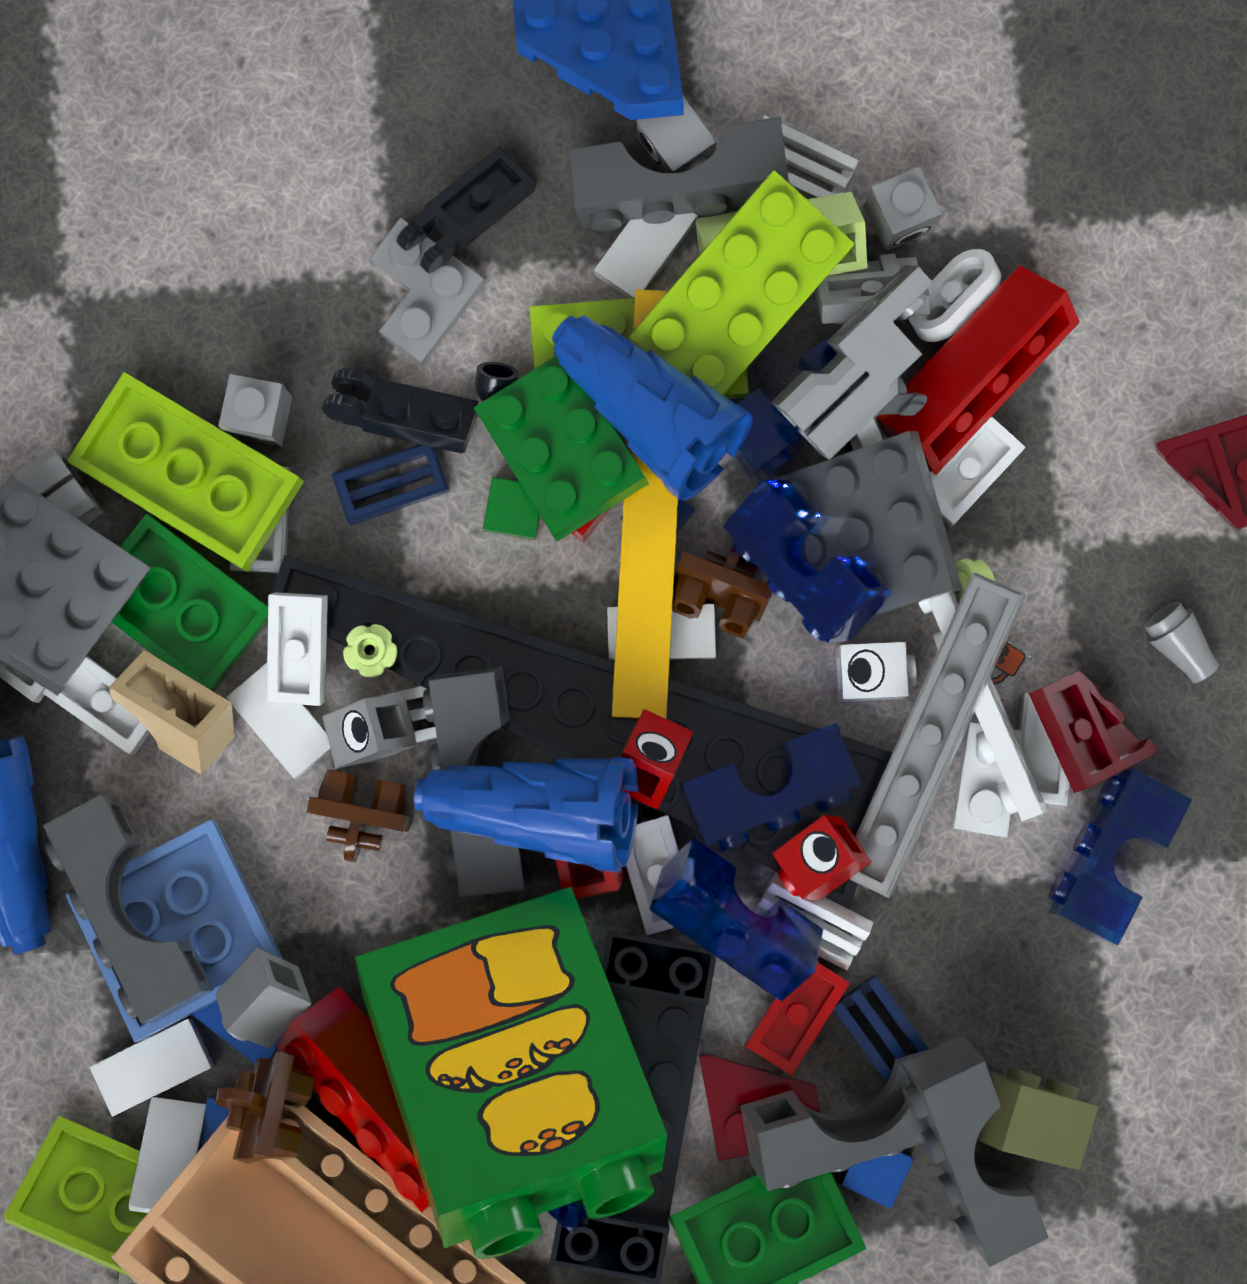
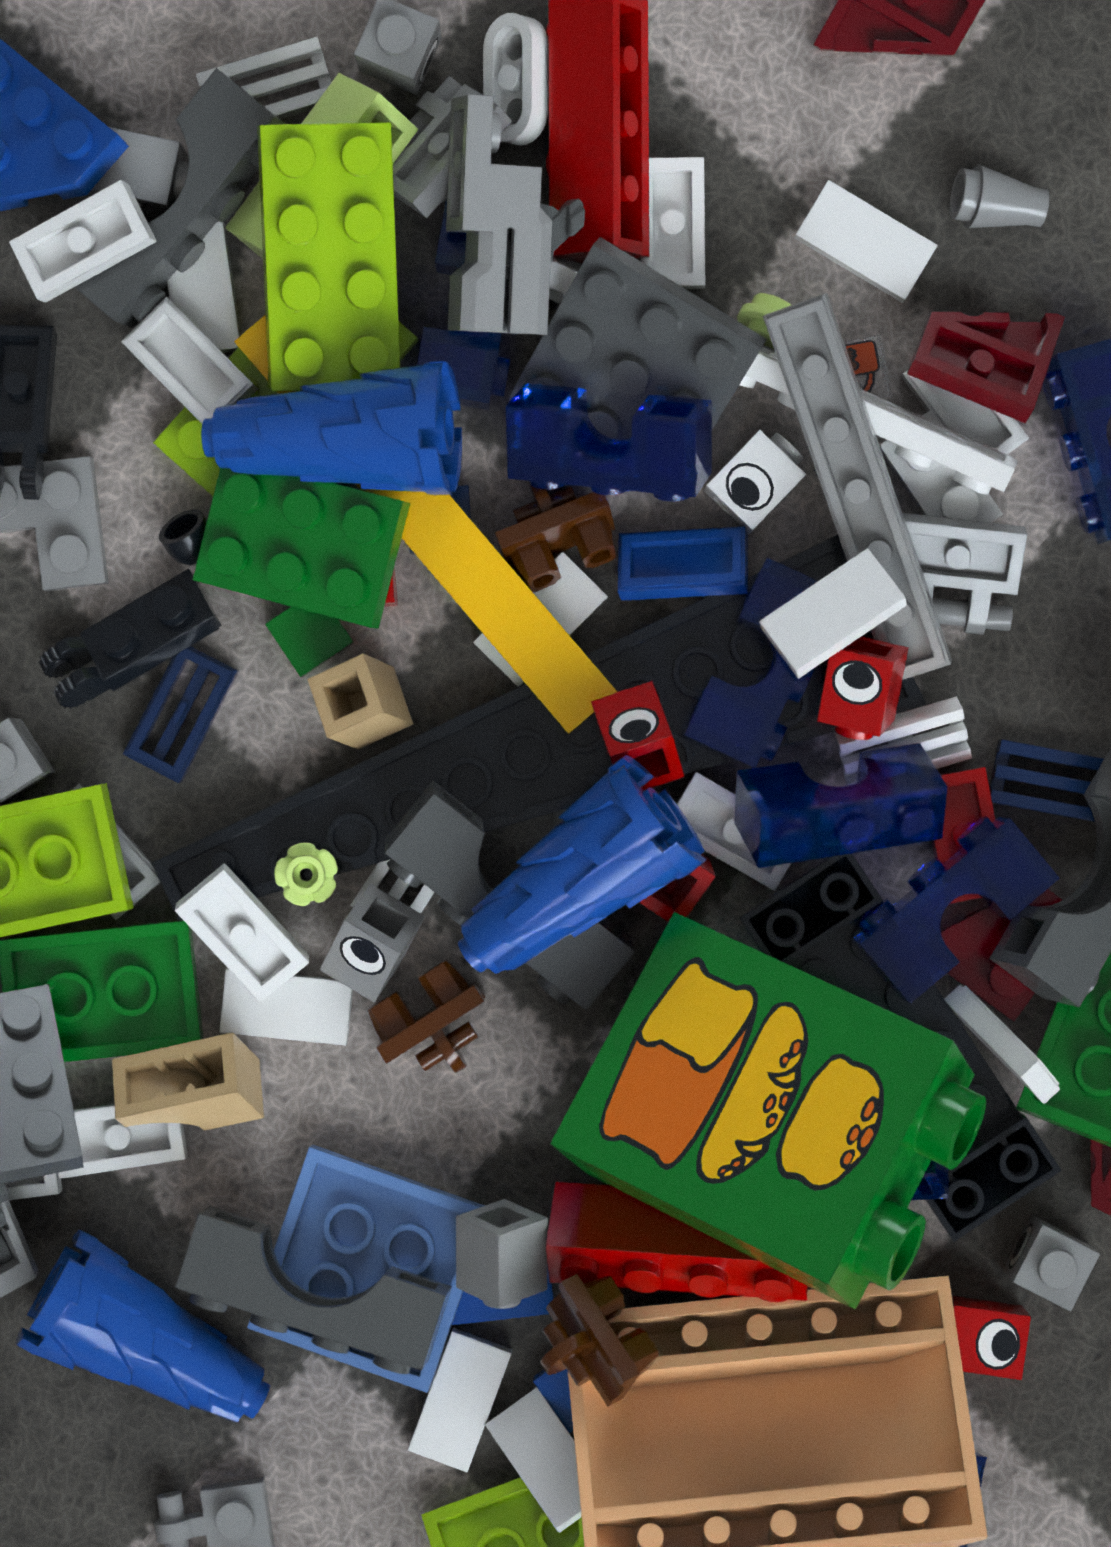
camera: 45 degrees left, 5 degrees up
(503, 576) = (360, 701): none -> tan brick
(596, 275) = (187, 361): none -> white tile
(601, 143) = (82, 241): none -> white plate
(698, 1168) = (1003, 1043): none -> white tile
(700, 1042) = (906, 936): none -> clear blue arch
(780, 680) = (683, 563): none -> blue tile
(845, 794) = (833, 613): none -> white tile
(961, 843) = (972, 558): none -> light grey plate
(1077, 591) = (865, 241): none -> white tile

